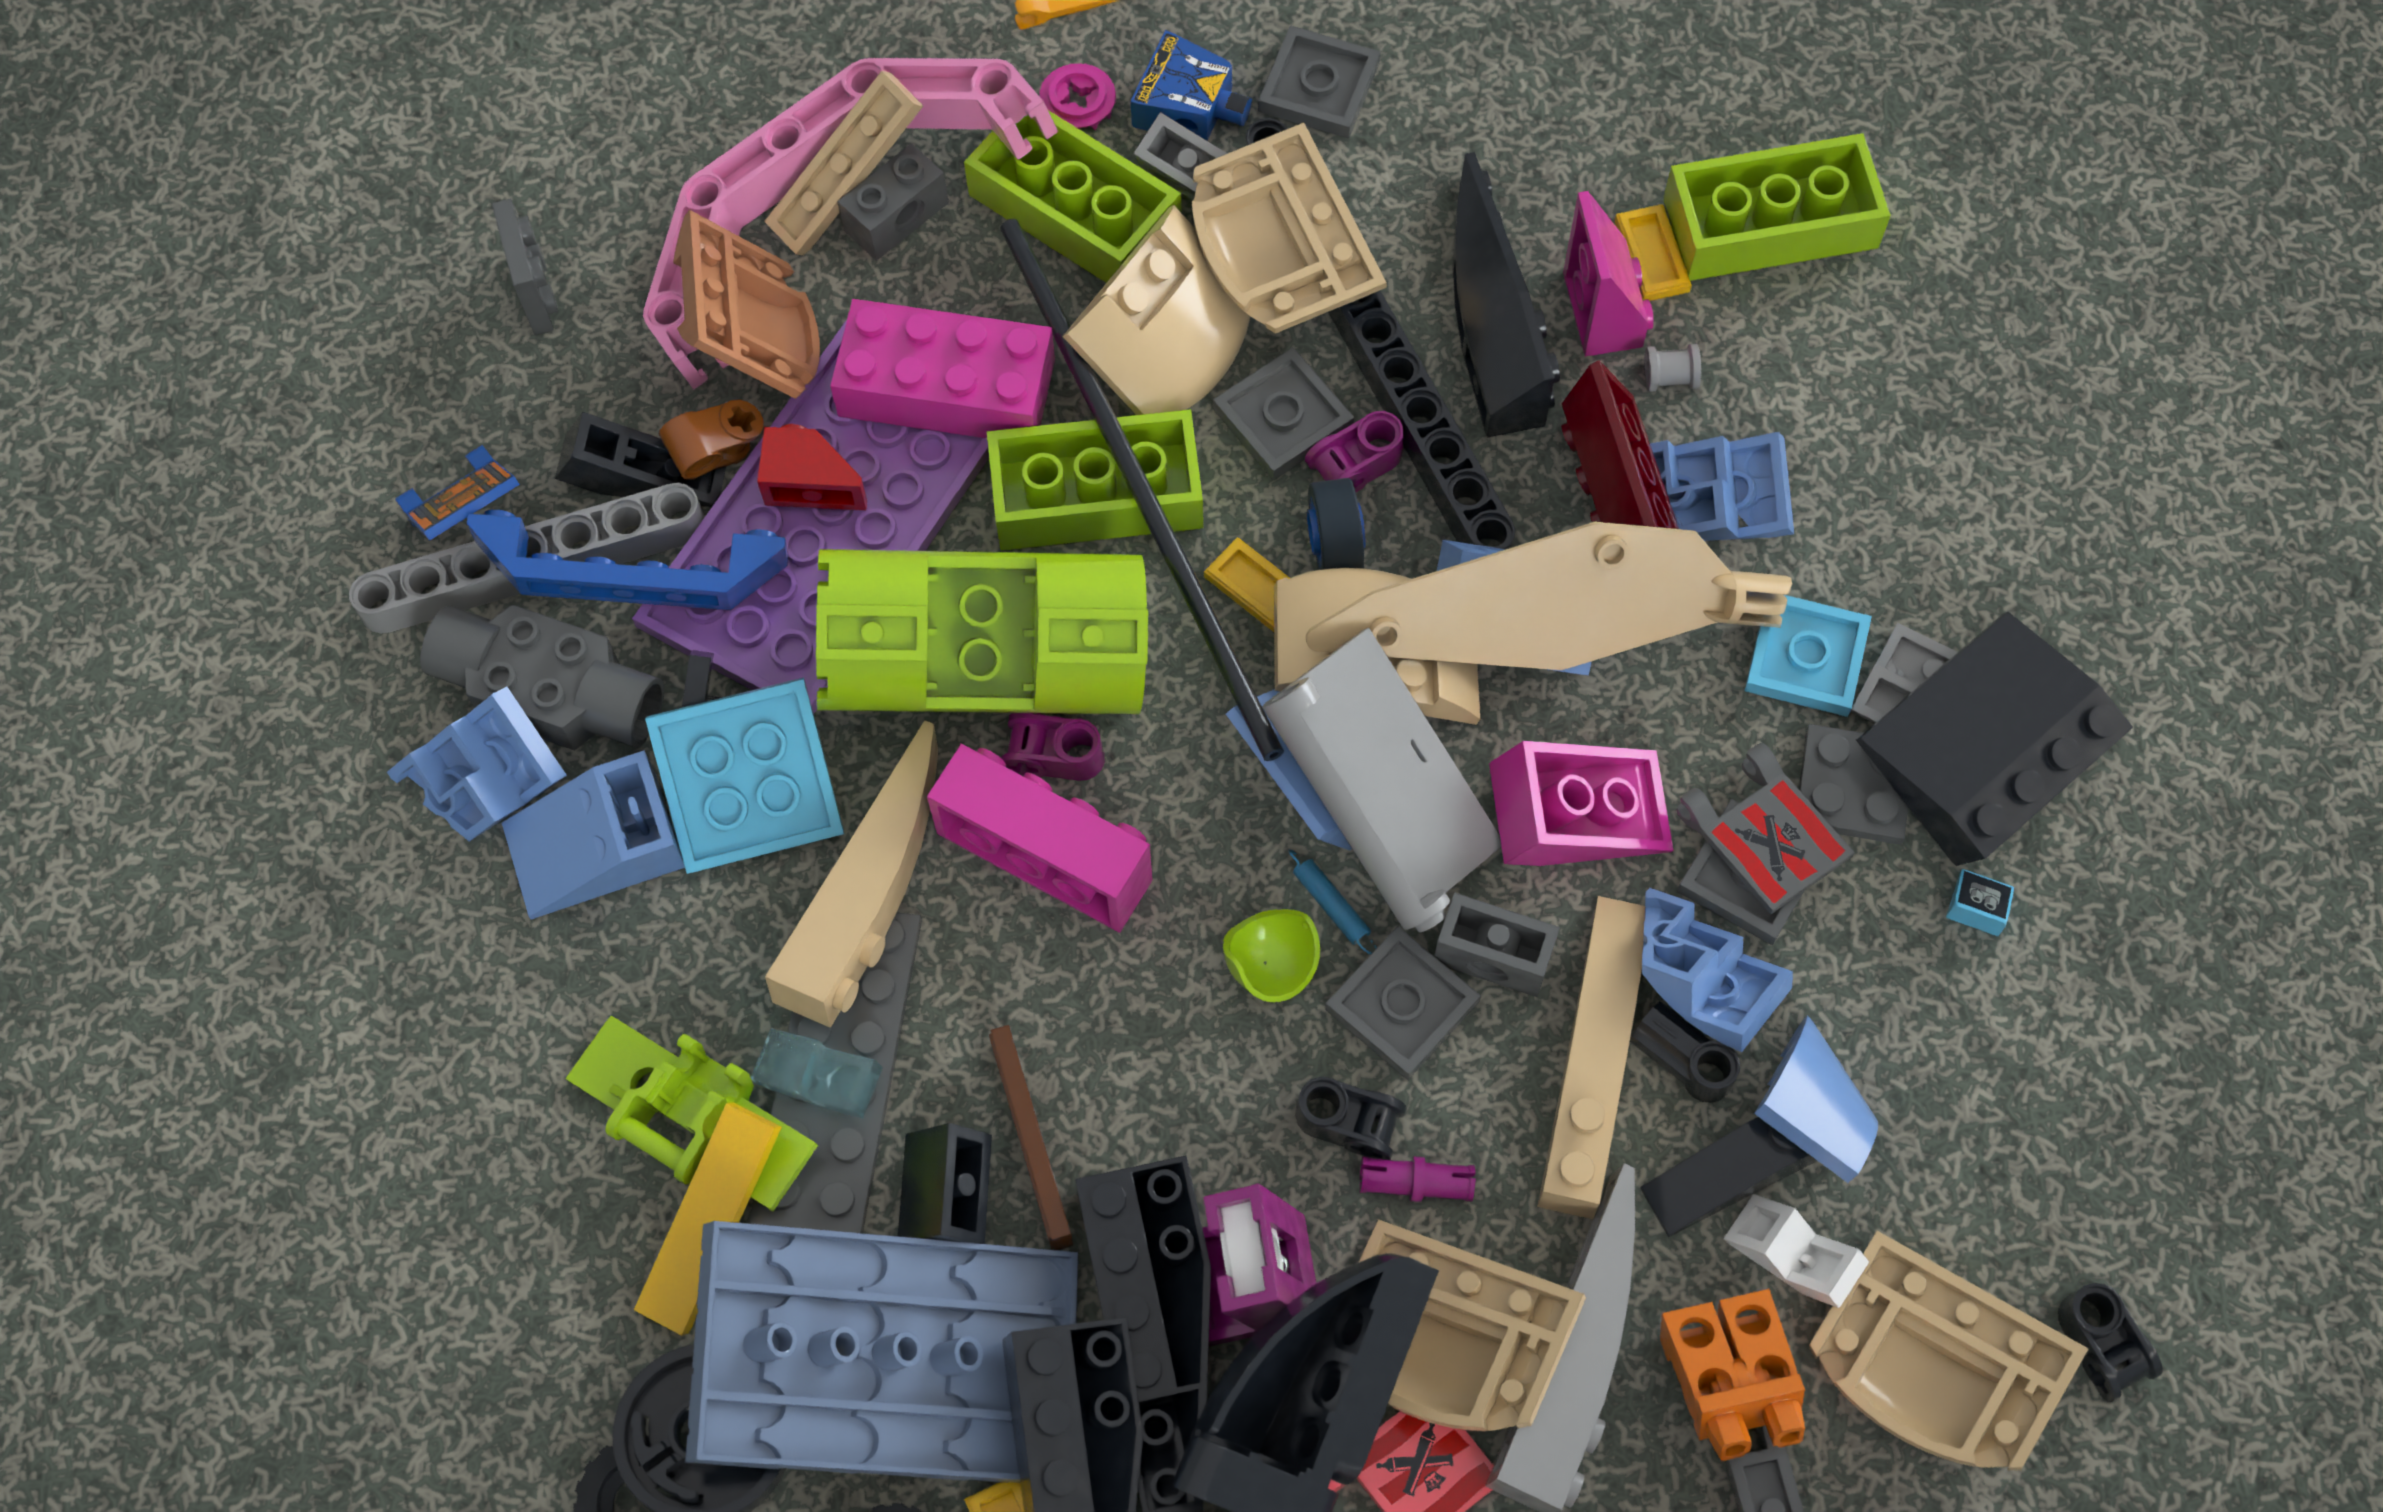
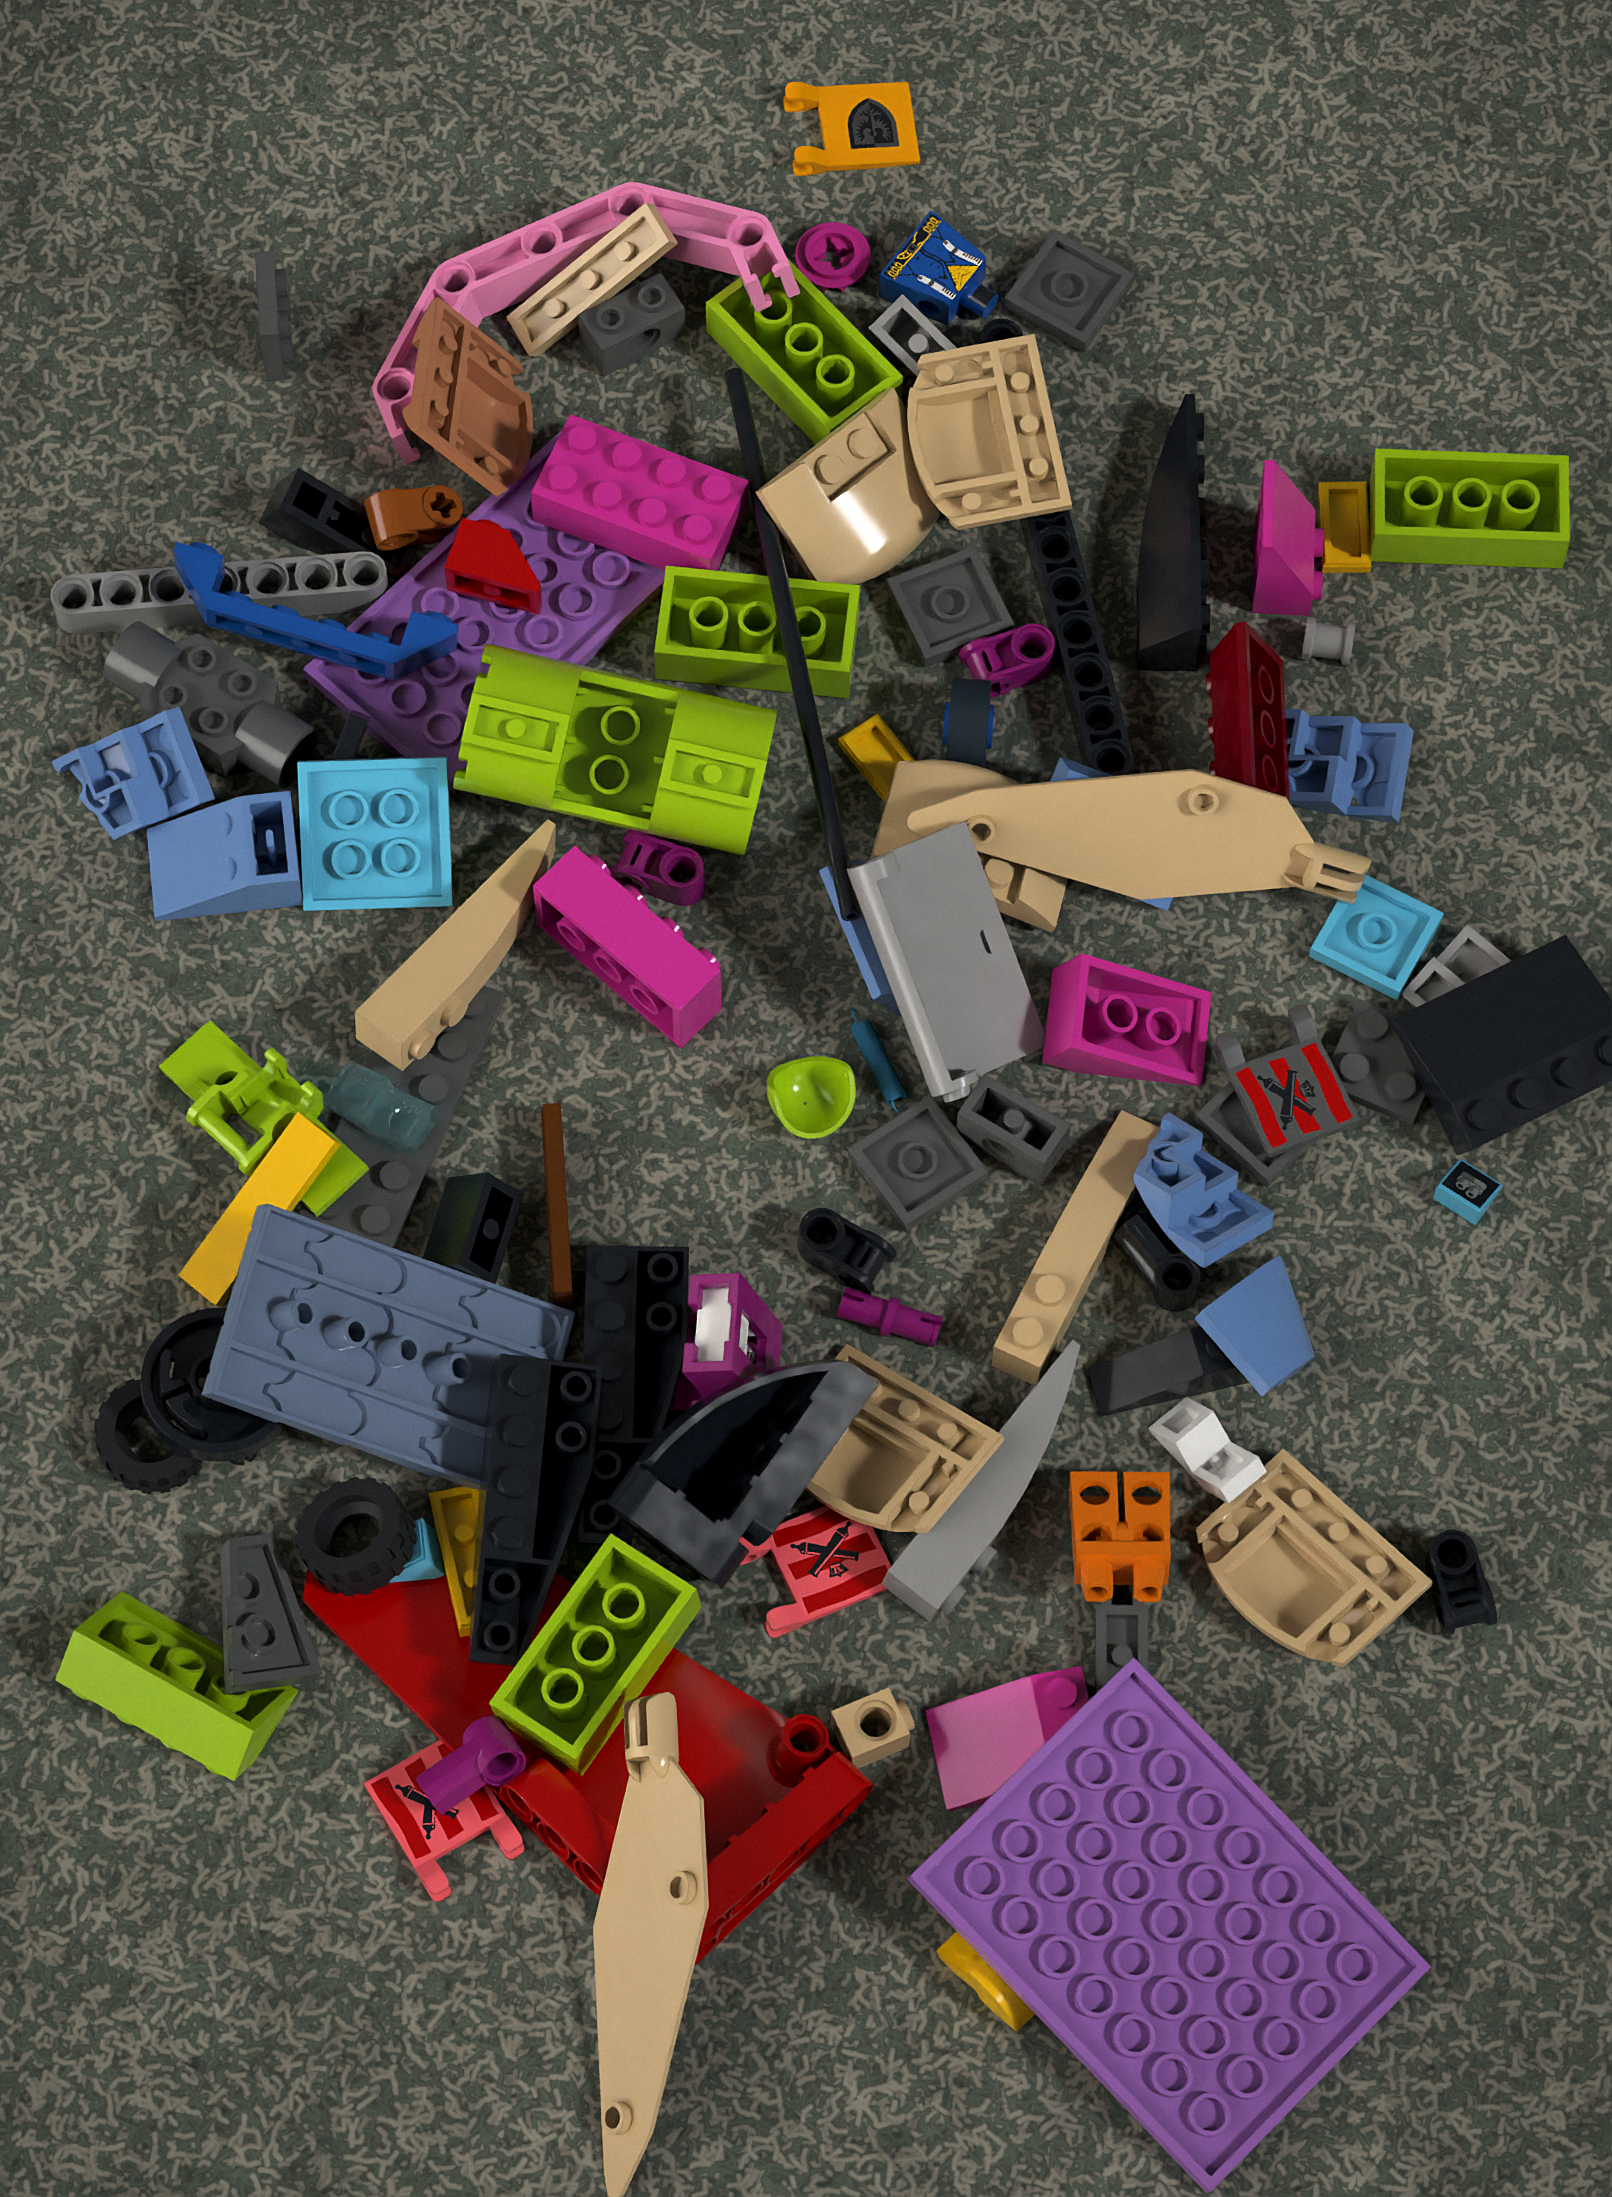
camera: 10 degrees right, 0 degrees up
(461, 498) = (169, 525): flag -> none

